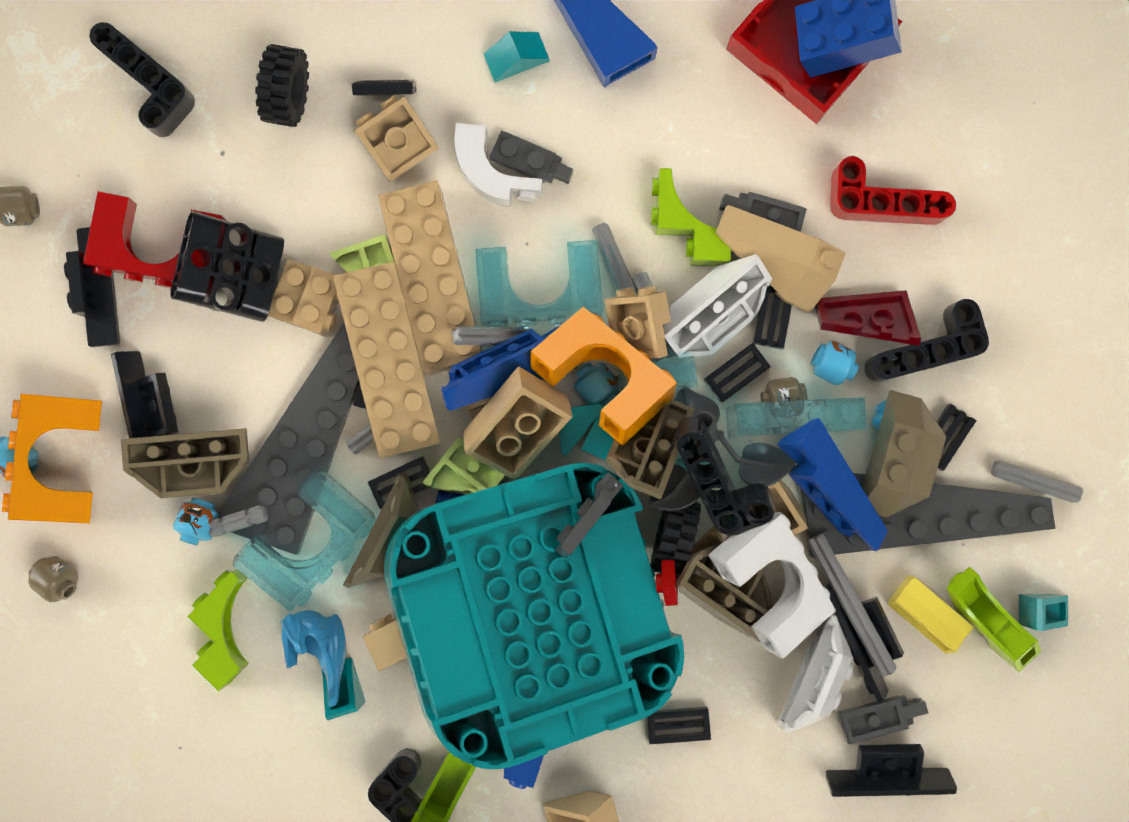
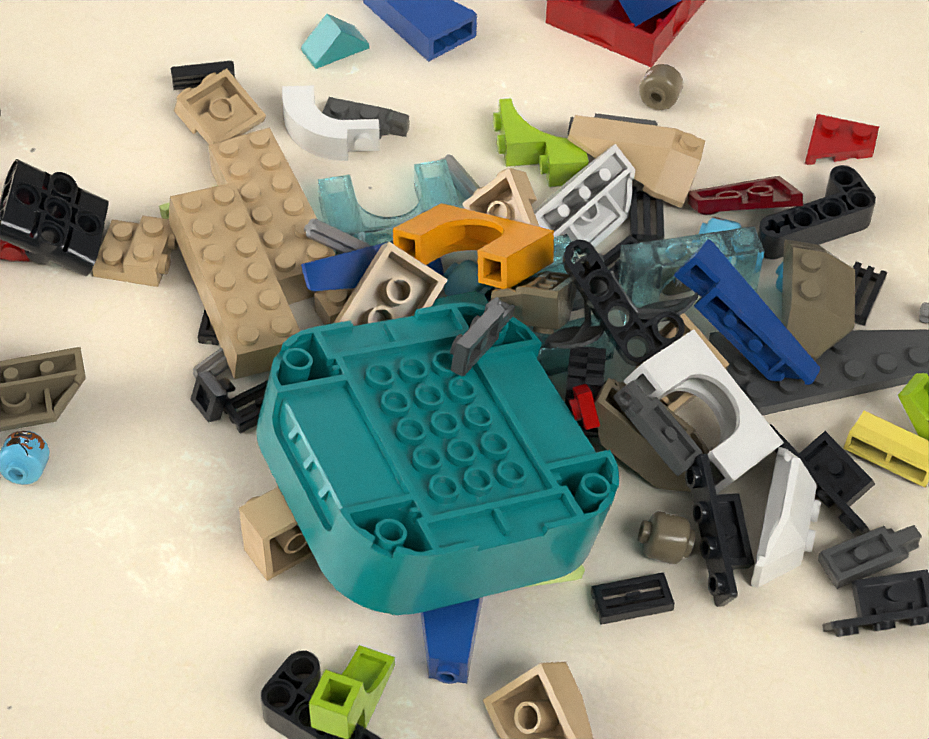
camera: 15 degrees left, 35 degrees down
(220, 660) = (45, 545): lime arch -> none
(238, 520) = (74, 445): light grey axle -> none
(282, 85) = (99, 73): black tyre -> none
(290, 579) = (141, 496): clear light blue arch -> none
(295, 449) = (128, 409): dark grey wing -> none
(320, 637) = (171, 548): dark azure hair -> none
(350, 693) = (216, 609): teal slope -> none
(358, 477) = (211, 395): none -> black tile
(397, 508) = (241, 462): dark tan wedge -> none
(717, 680) = (666, 537): none -> dark tan head
(729, 608) = (658, 427): none -> dark grey hinge
(763, 688) = (722, 531): none -> black bracket
(819, 162) = (663, 84): none -> dark tan head
(852, 605) = (805, 443): light grey axle -> none
(889, 197) = (737, 111): red beam -> none
(975, 248) = (840, 139): none -> red wing

